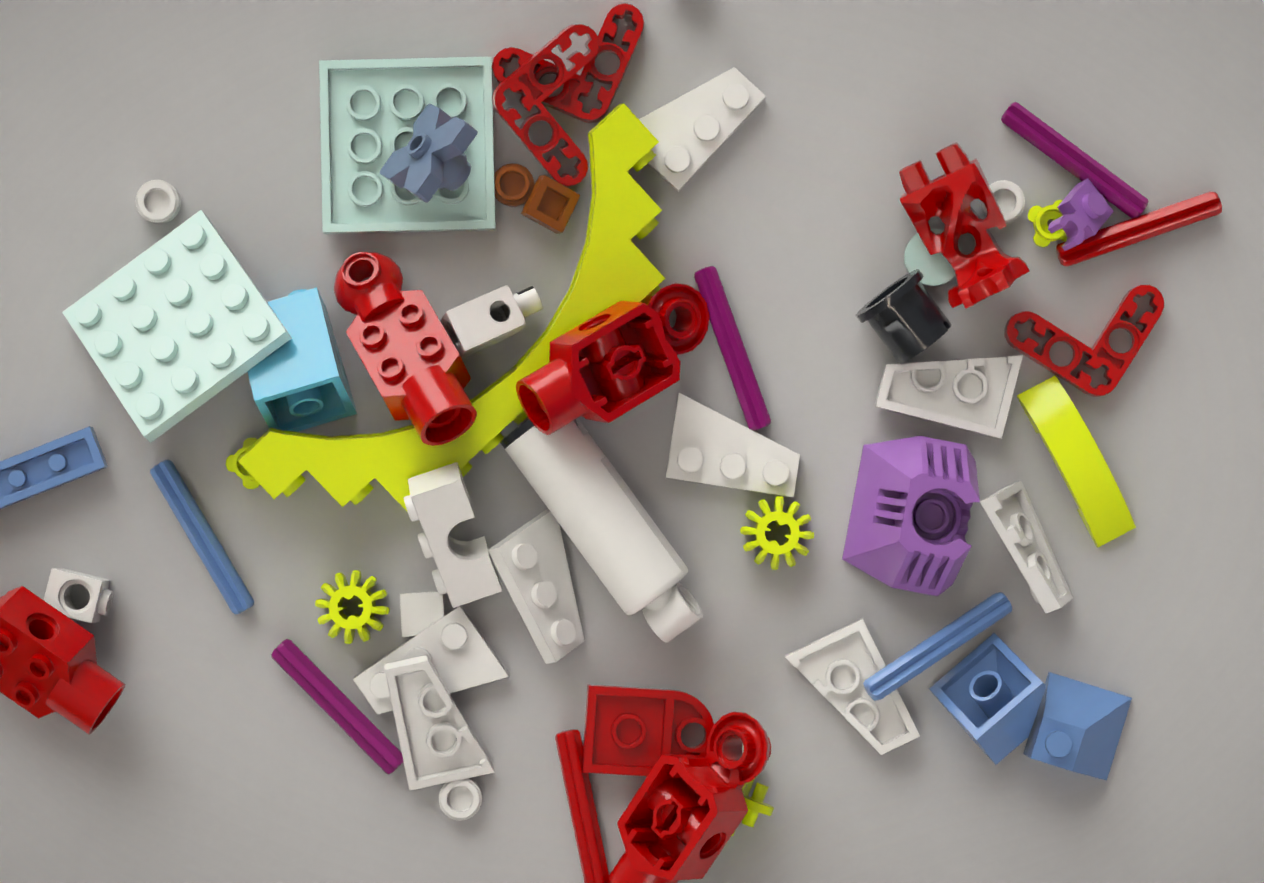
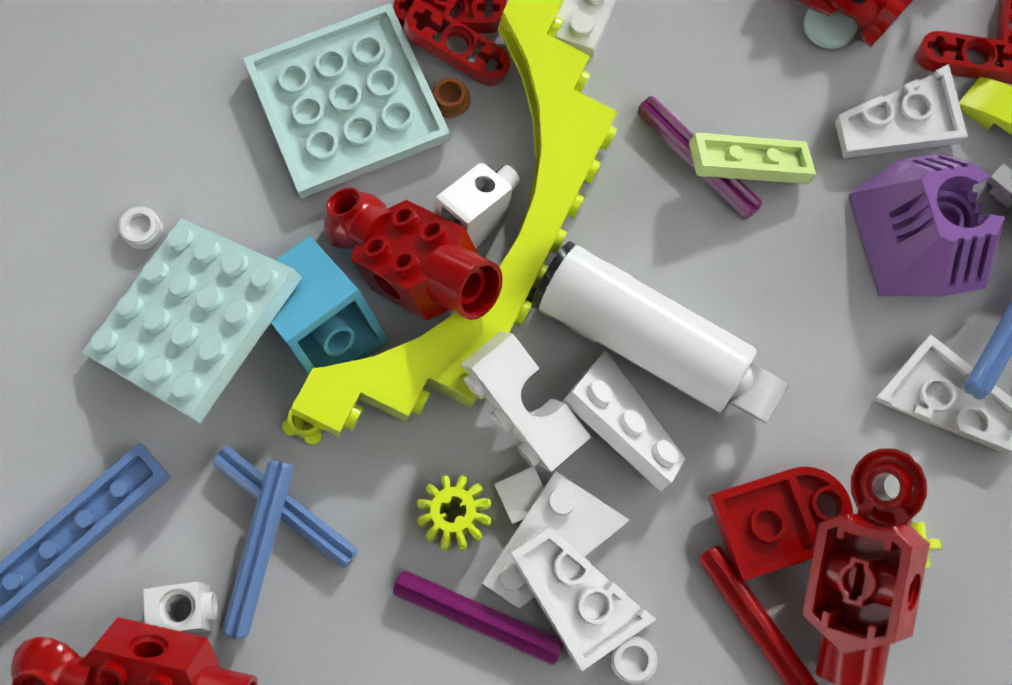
camera: 20 degrees left, 15 degrees down
(165, 569) = (257, 549): none -> medium blue axle
(432, 156) = (371, 82): sand blue plant -> none
(550, 204) = (490, 98): dark orange plate -> none
(615, 360) = (603, 187): red brick -> none
(727, 454) = (736, 245): white wing -> none
(772, 546) = (824, 304): neon yellow gear -> none
(777, 377) = (751, 158): none -> yellowish green plate
(905, 317) = (837, 68): black piece -> none

